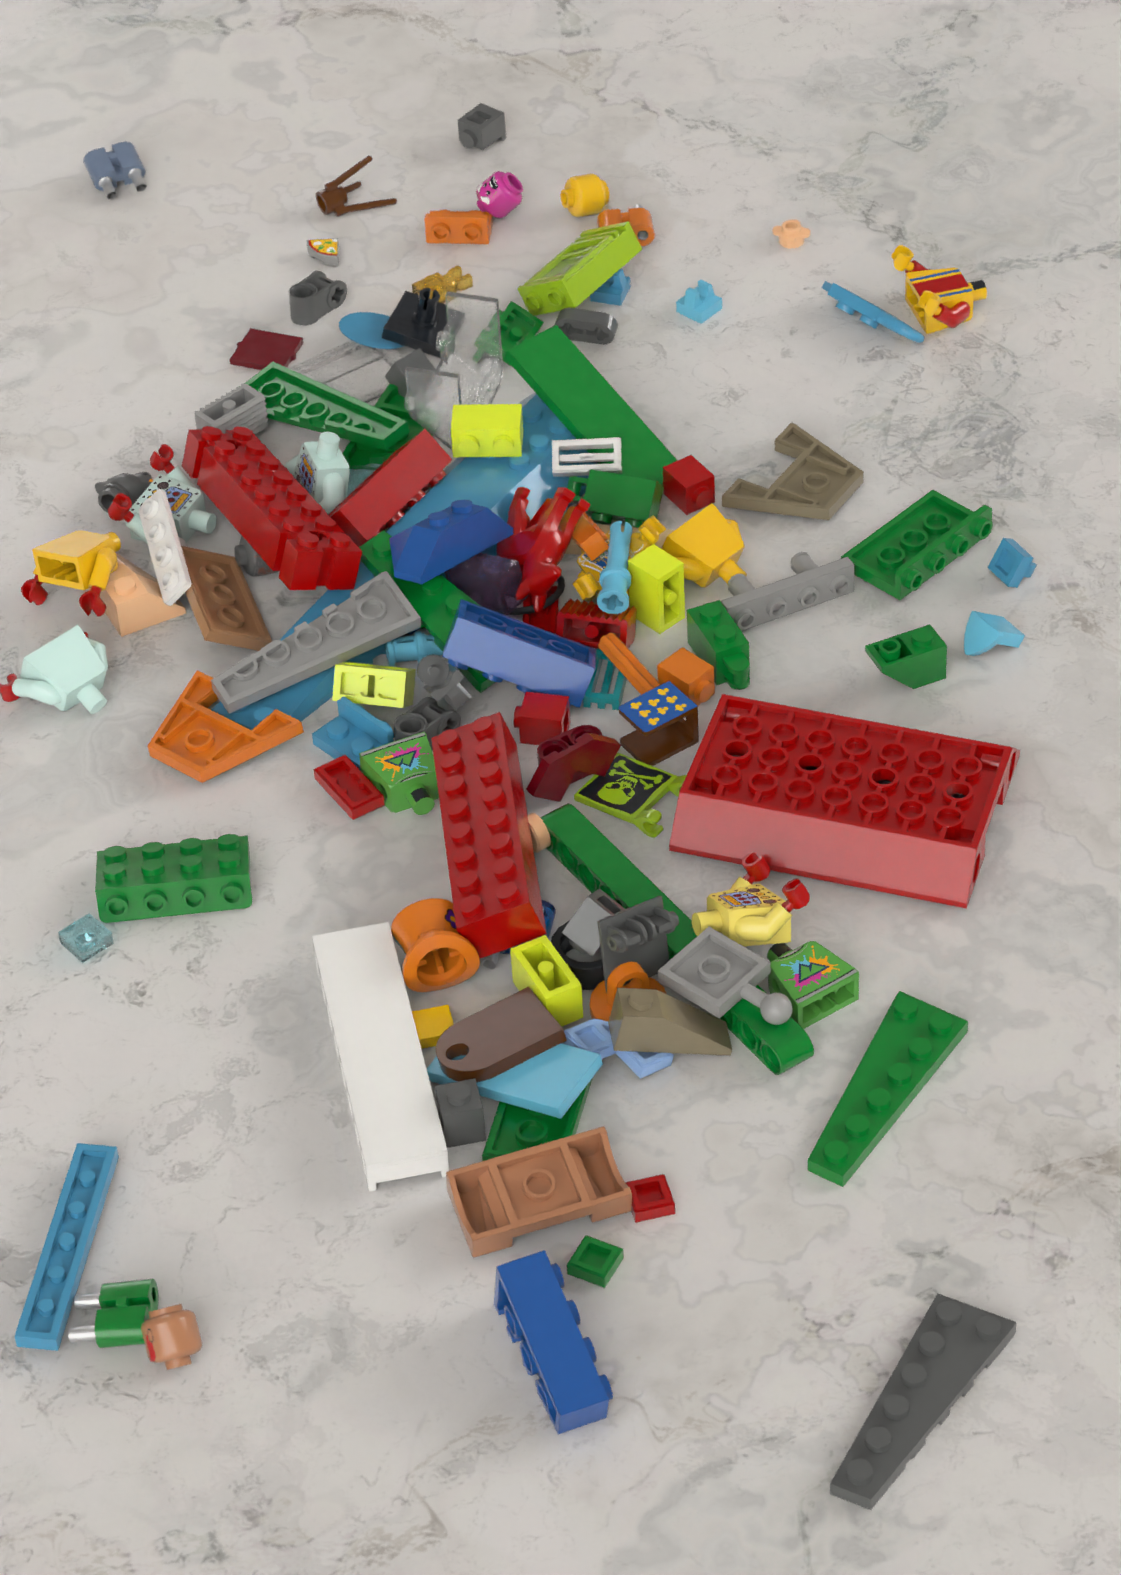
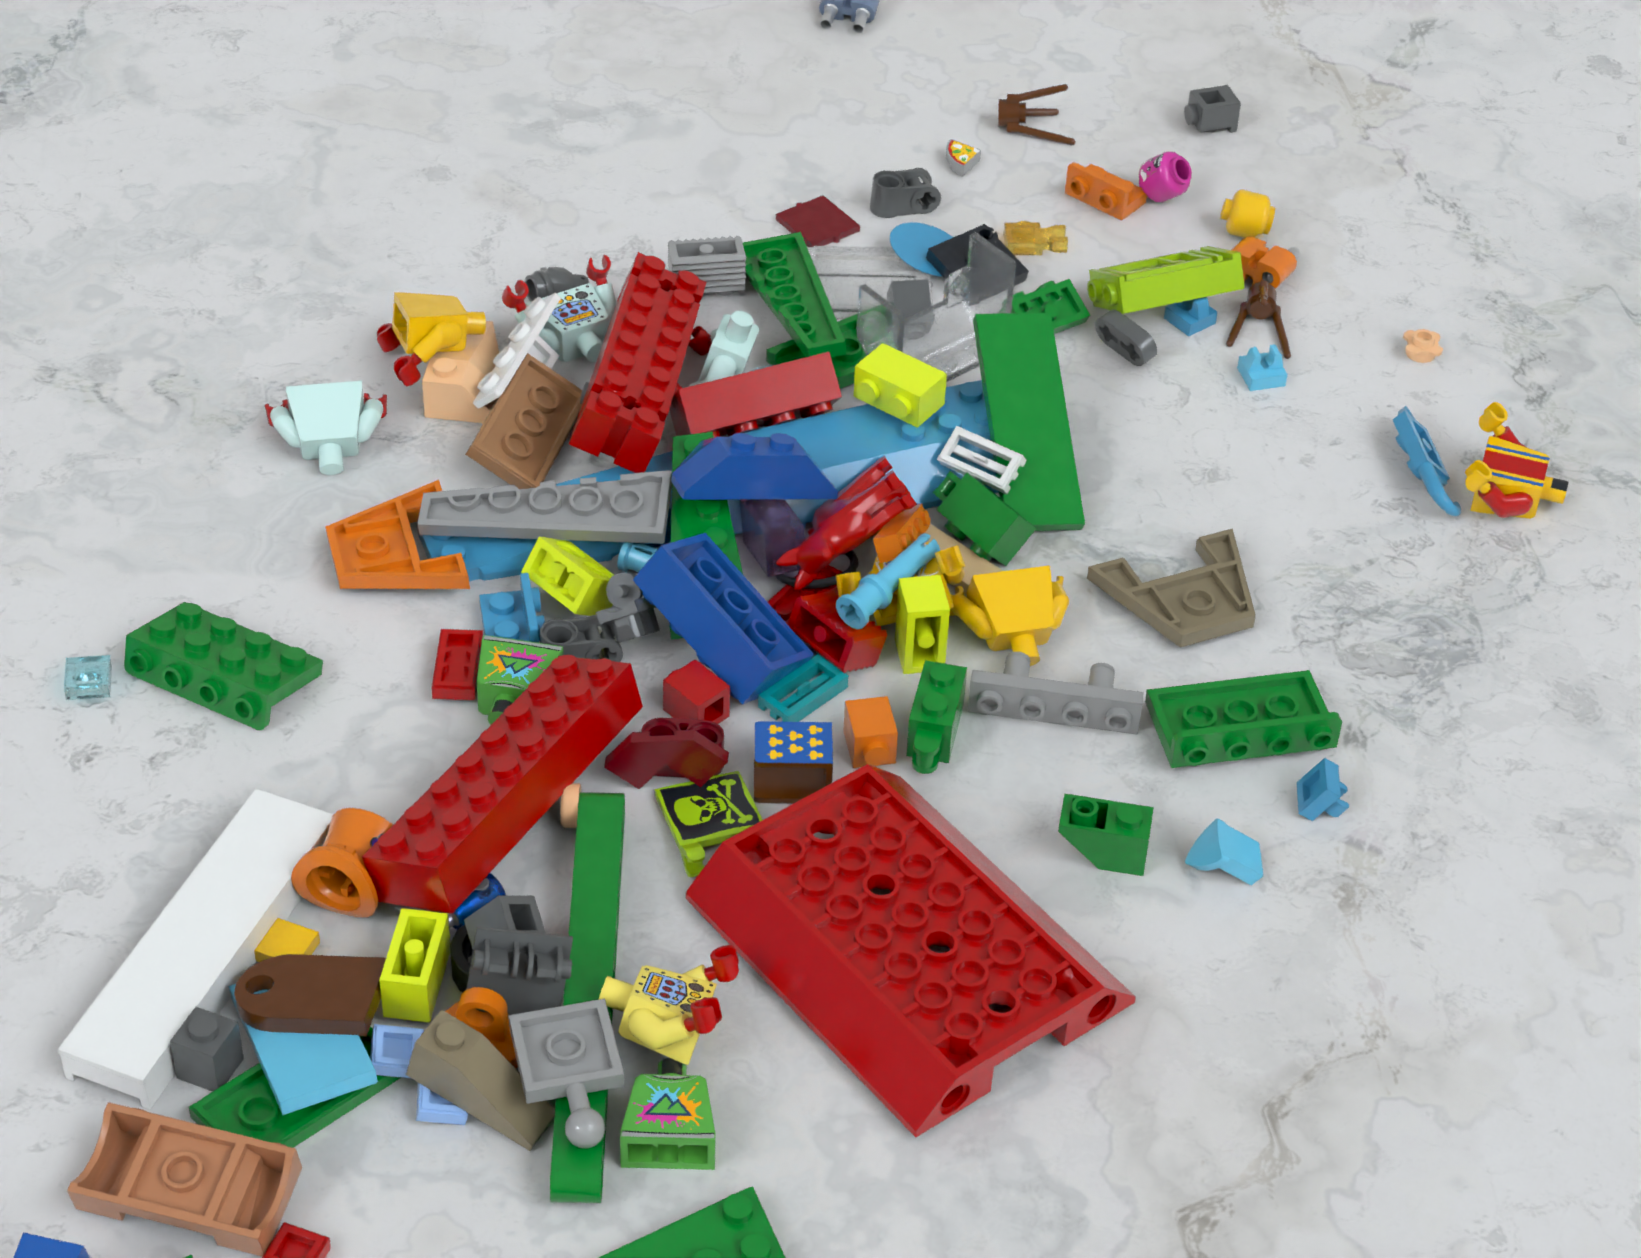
camera: 30 degrees right, 0 degrees up
(627, 663) = (827, 691): orange axle -> none
(655, 257) = (1261, 305): none -> reddish brown plant
(689, 484) = (1069, 539): red brick -> none

